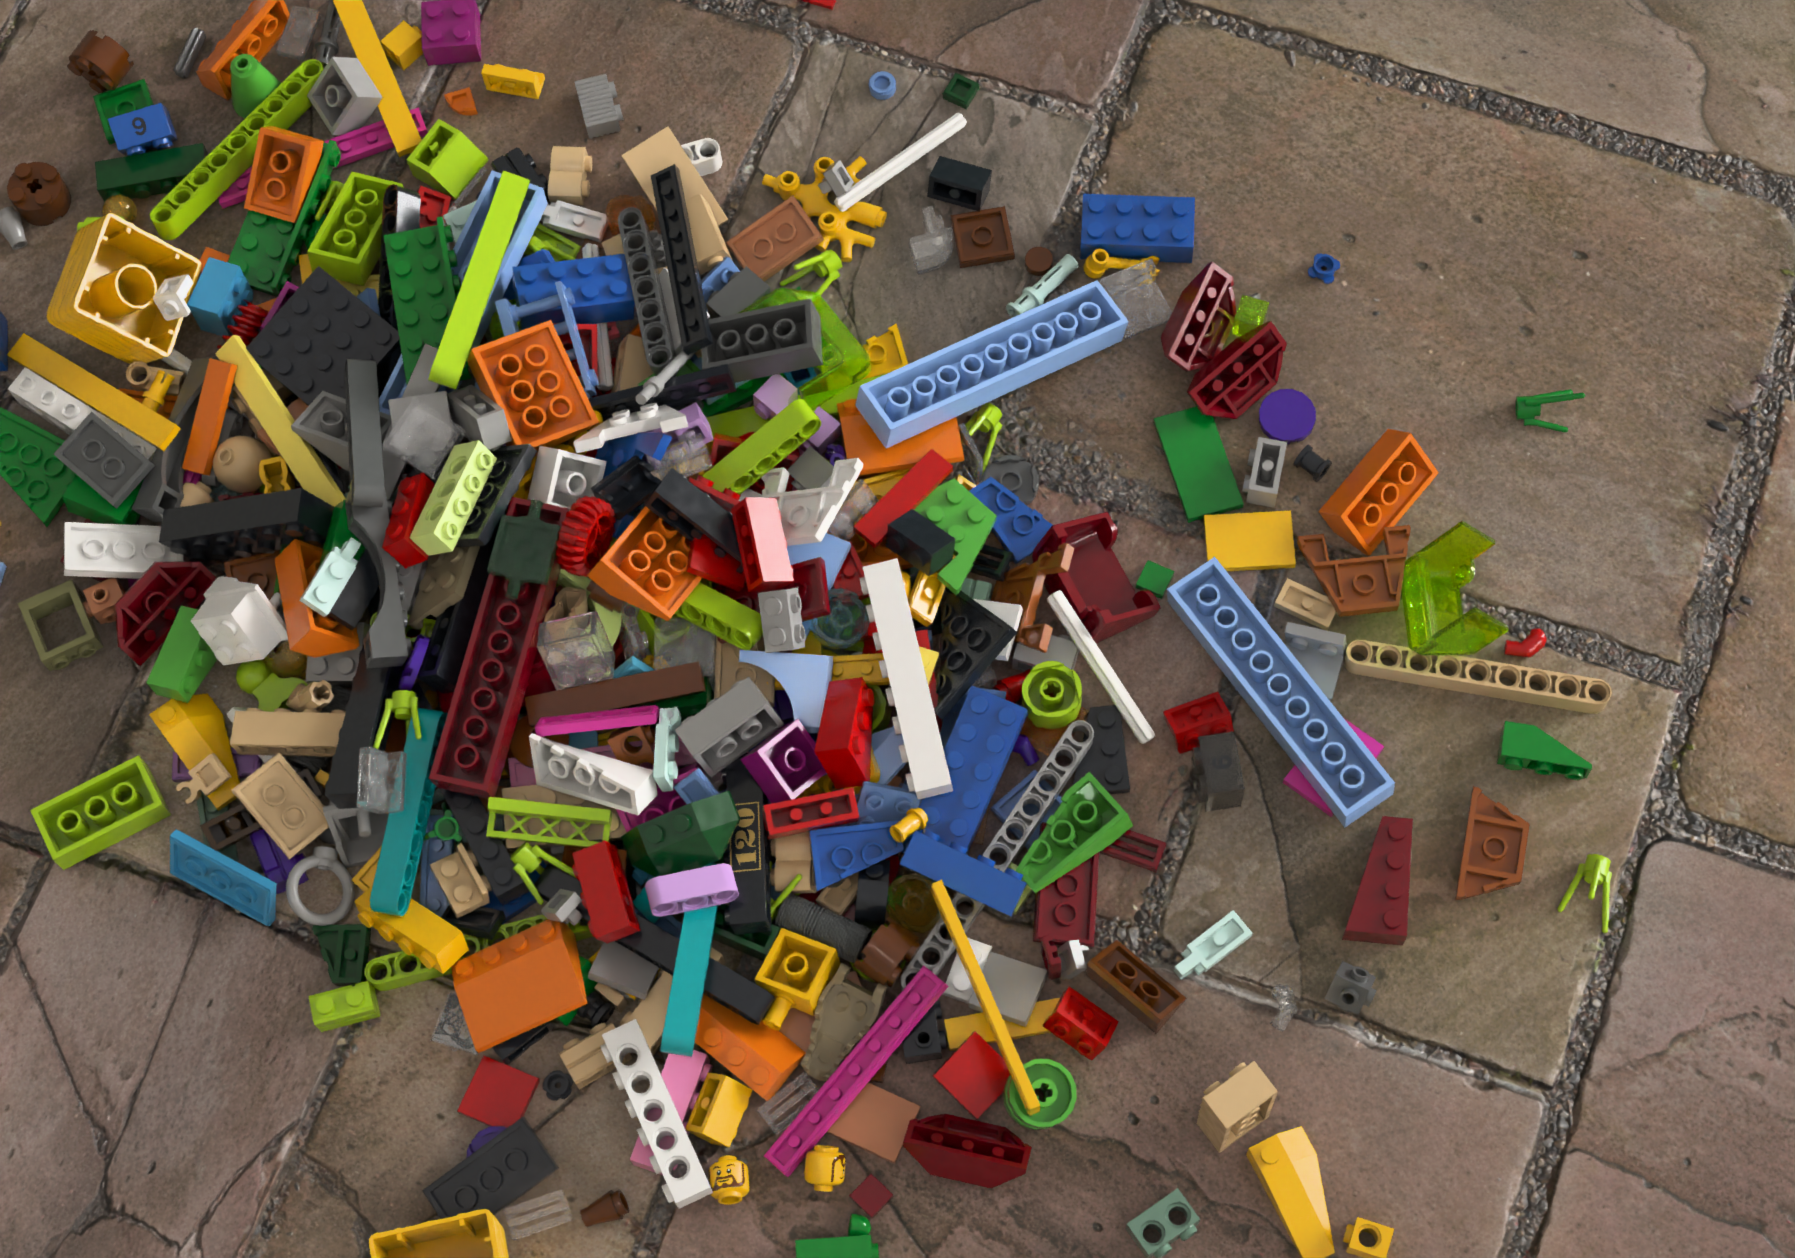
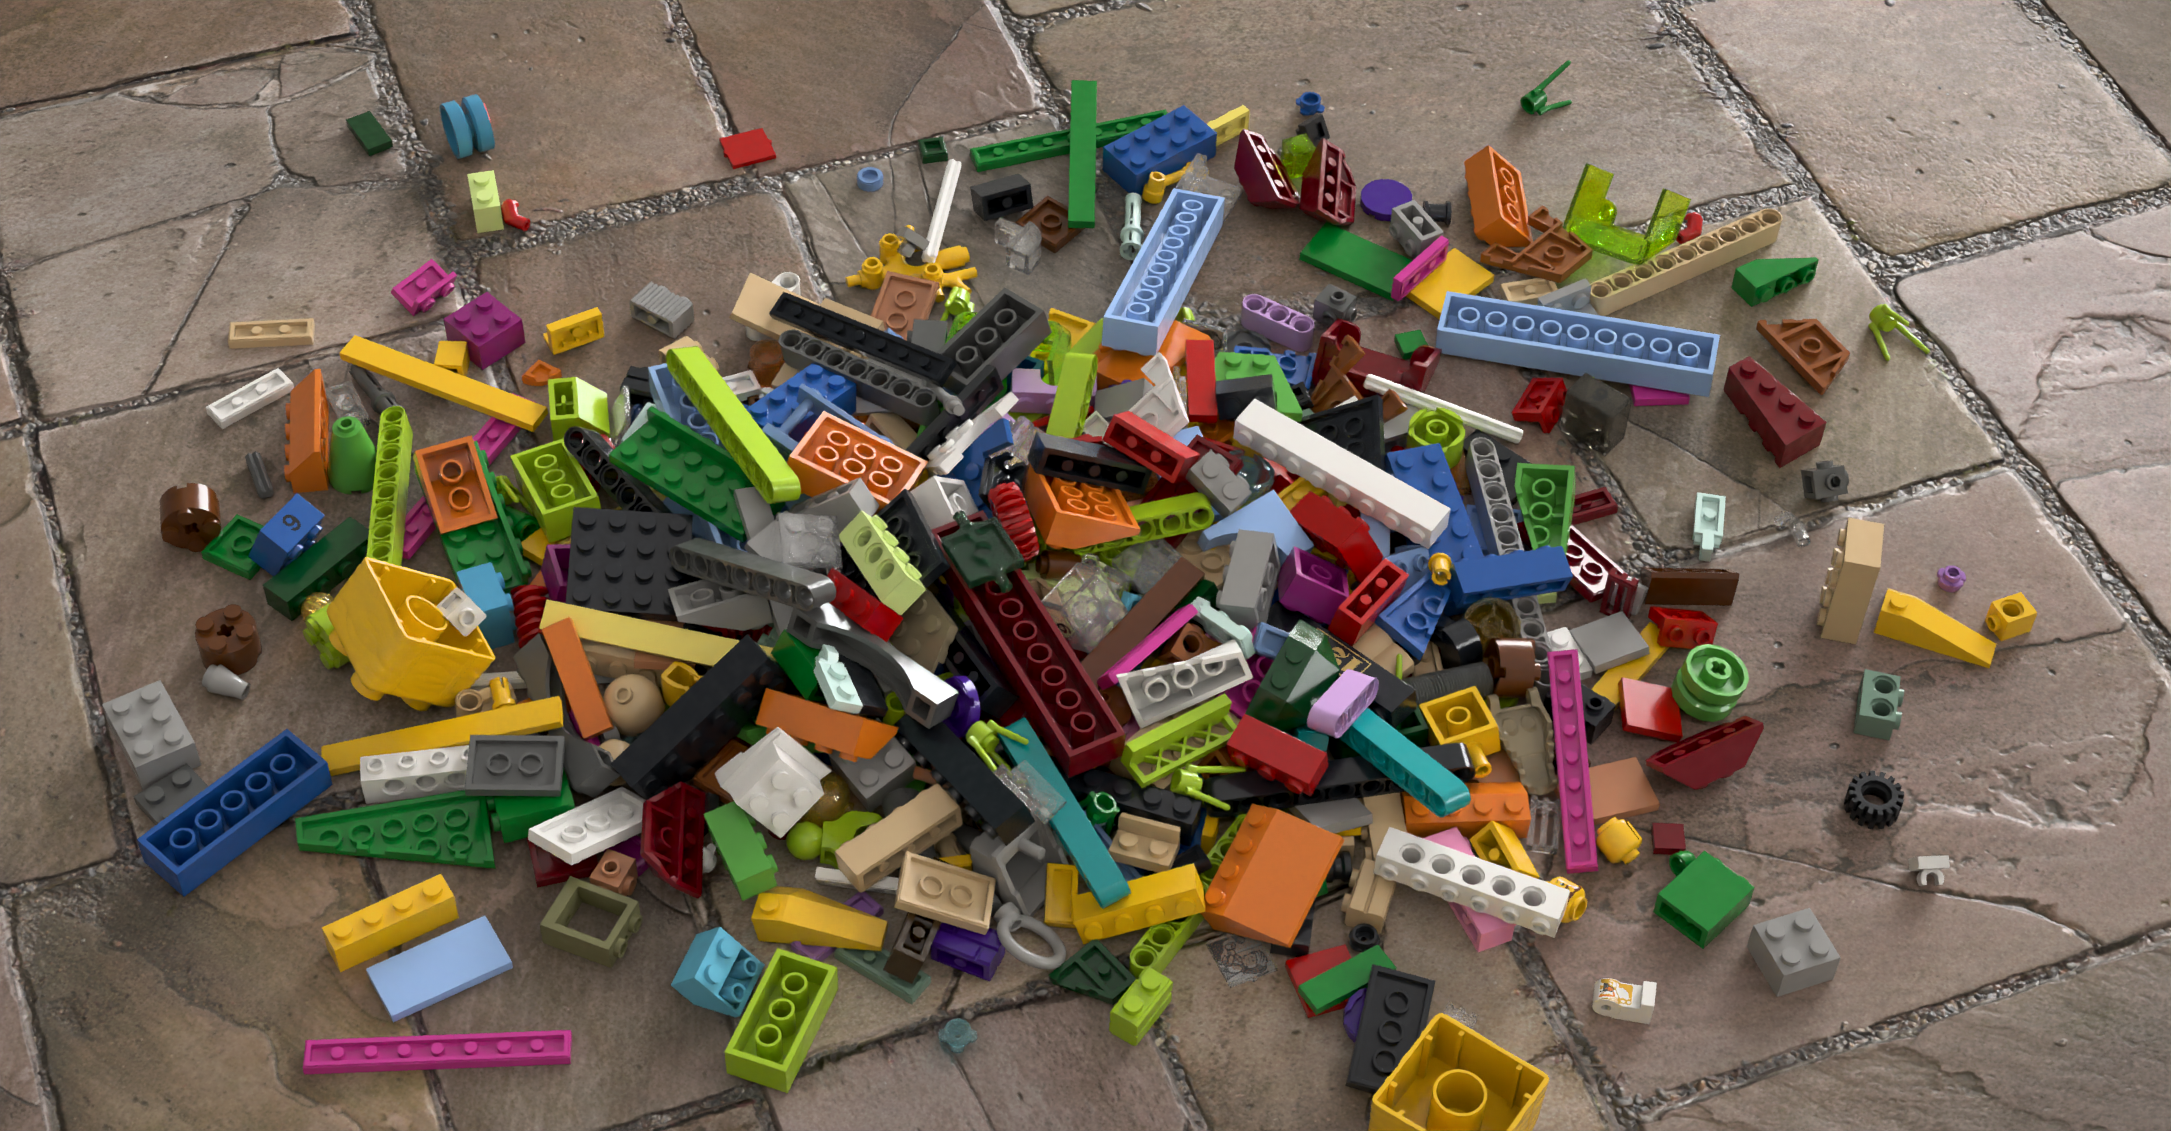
camera: 50 degrees left, 20 degrees down
(101, 737) = (718, 973): none -> medium azure slope
(206, 777) = (855, 922): tan plate -> none
(206, 913) = (957, 1027): none -> clear light blue plate
(222, 878) = (942, 987): dark azure tile -> none
(312, 696) = (890, 796): tan piece -> none
(344, 95) = (444, 412): light grey brick -> none
(504, 1108) = (1342, 980): none -> green tile
(531, 907) = (1209, 833): none -> yellow tile
(563, 907) = (1254, 788): light grey tile -> none
(605, 1209) = (1496, 988): reddish brown cone -> none
(706, 564) = (1117, 491): red tile -> none
(985, 998) = (1618, 631): yellow tile -> none
(1038, 261) = (1109, 214): reddish brown tile -> none
(1057, 463) = (1277, 322): none -> lavender beam
(1070, 184) = (1082, 154): none -> green tile
(1079, 159) = (1053, 143): none -> green tile
(1119, 498) = (1334, 304): none -> dark grey brick
(1221, 242) = (1230, 124): none -> light yellow plate
(1227, 513) = (1419, 268): none -> dark pink tile
(1292, 301) = (1314, 128): none -> black tile
(1373, 1161) = (1951, 578): none -> medium lavender plate

